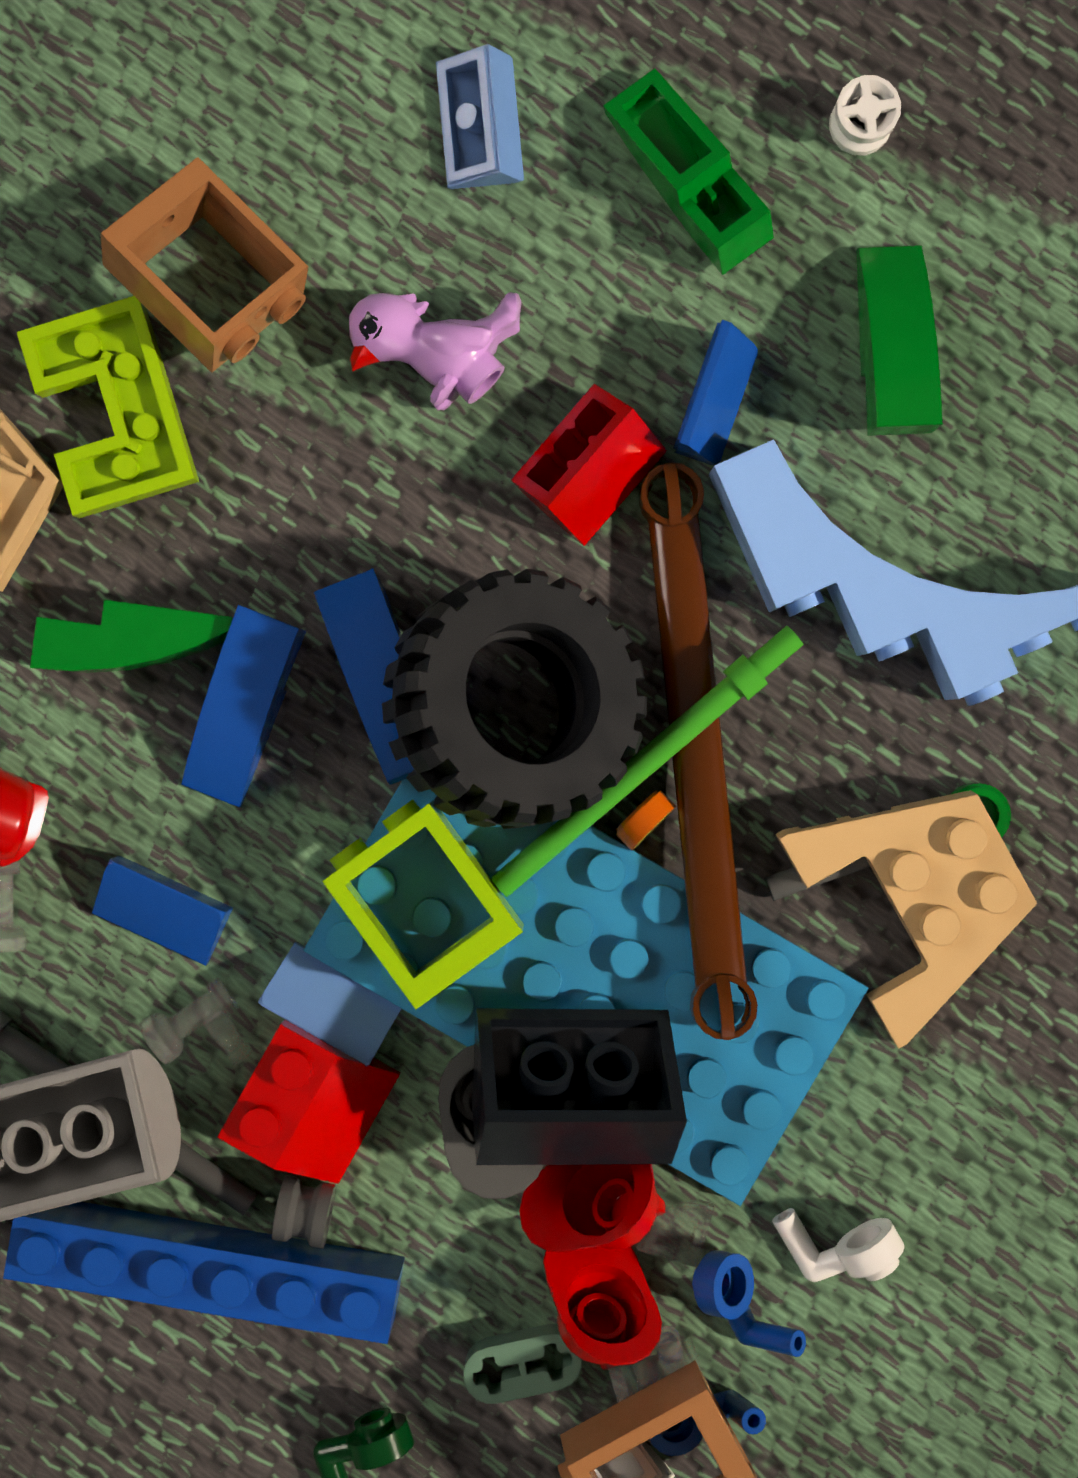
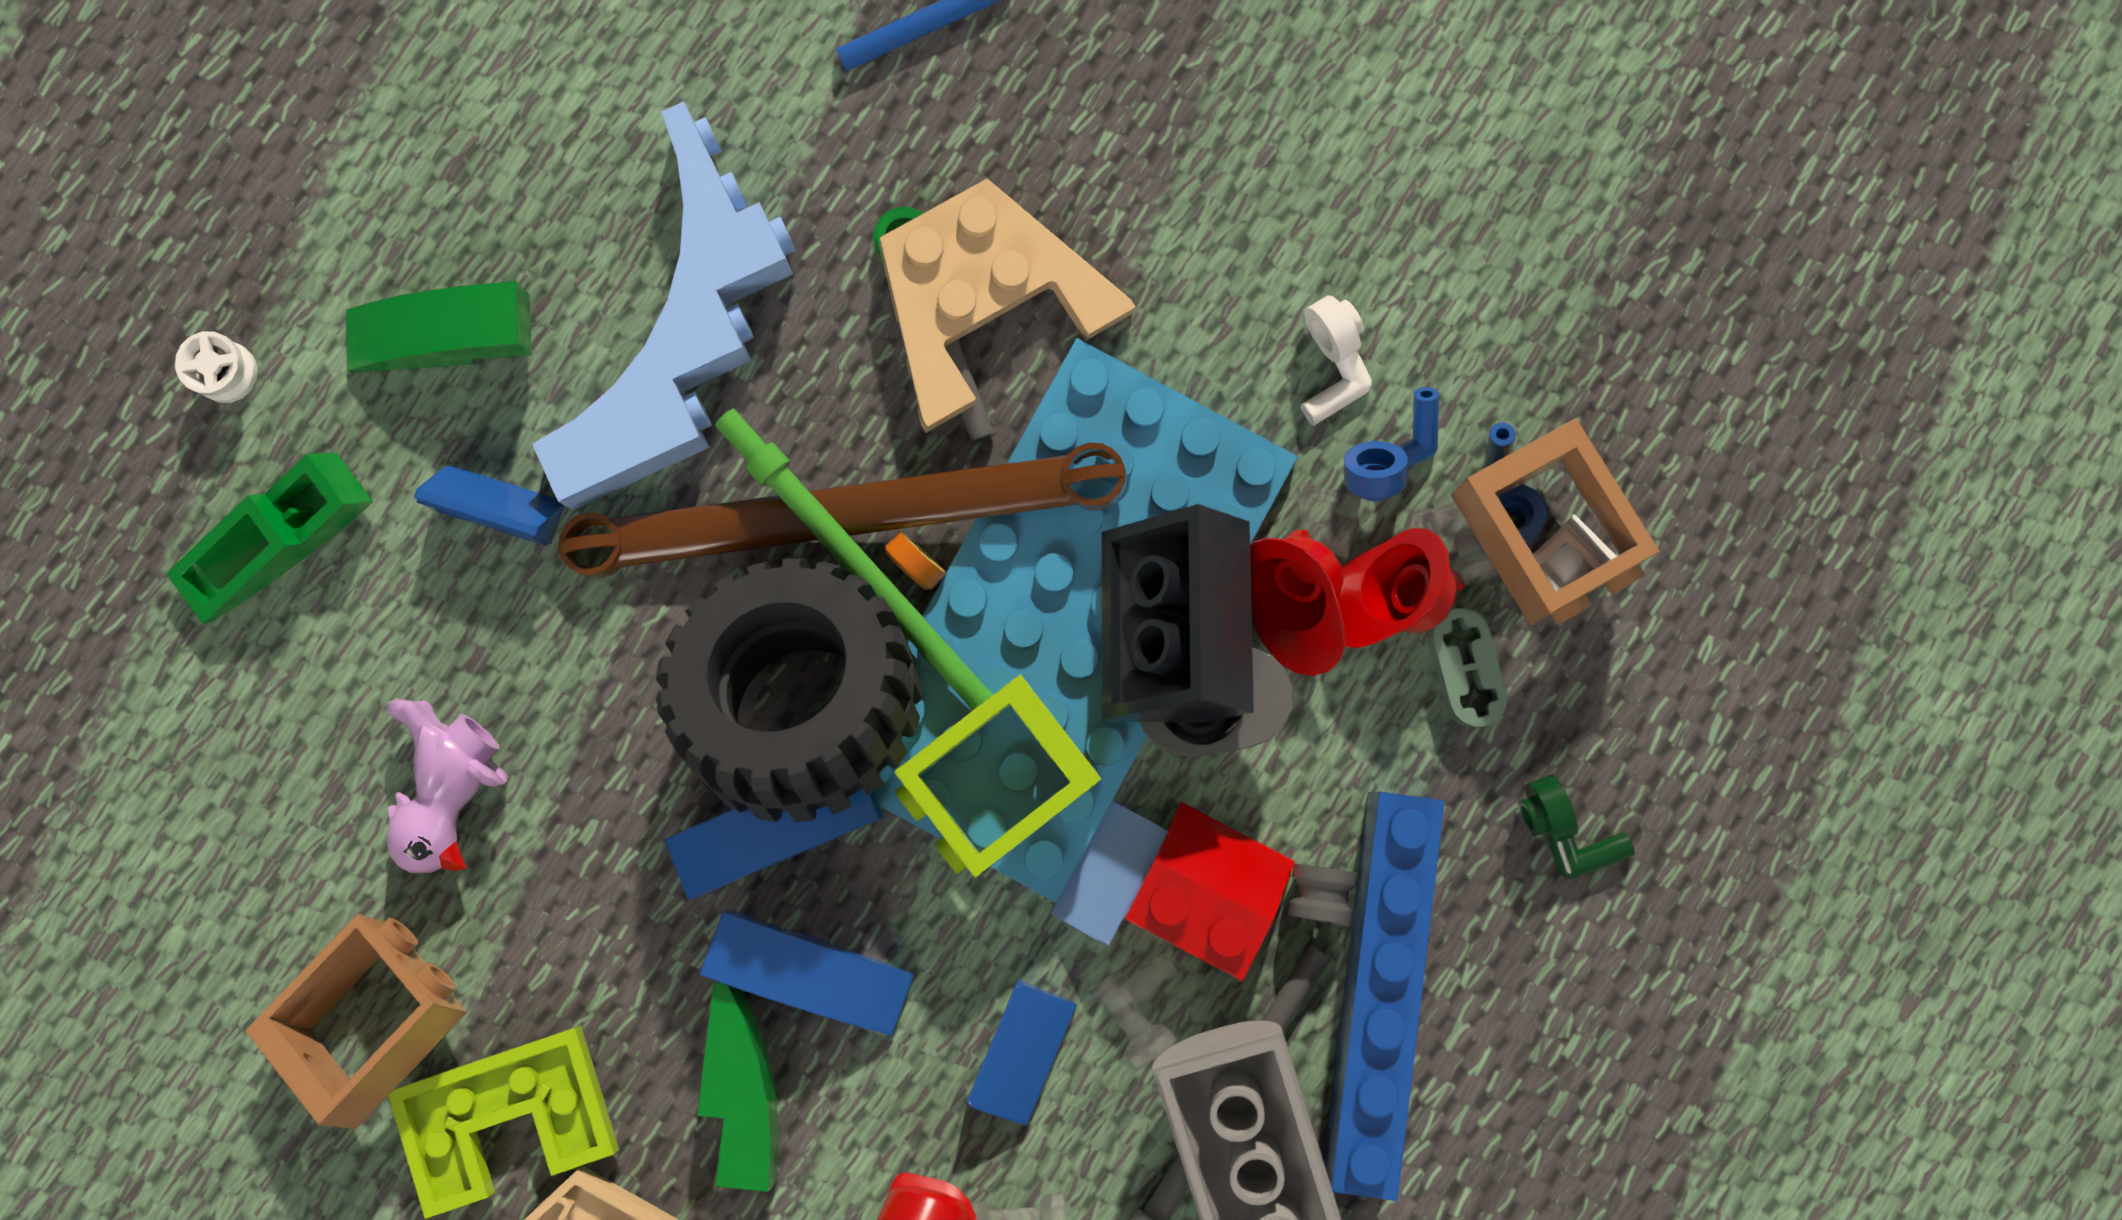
camera: 90 degrees left, 5 degrees down
(479, 118) = (214, 749): medium blue slope -> none
(589, 463) = (560, 626): red brick -> none

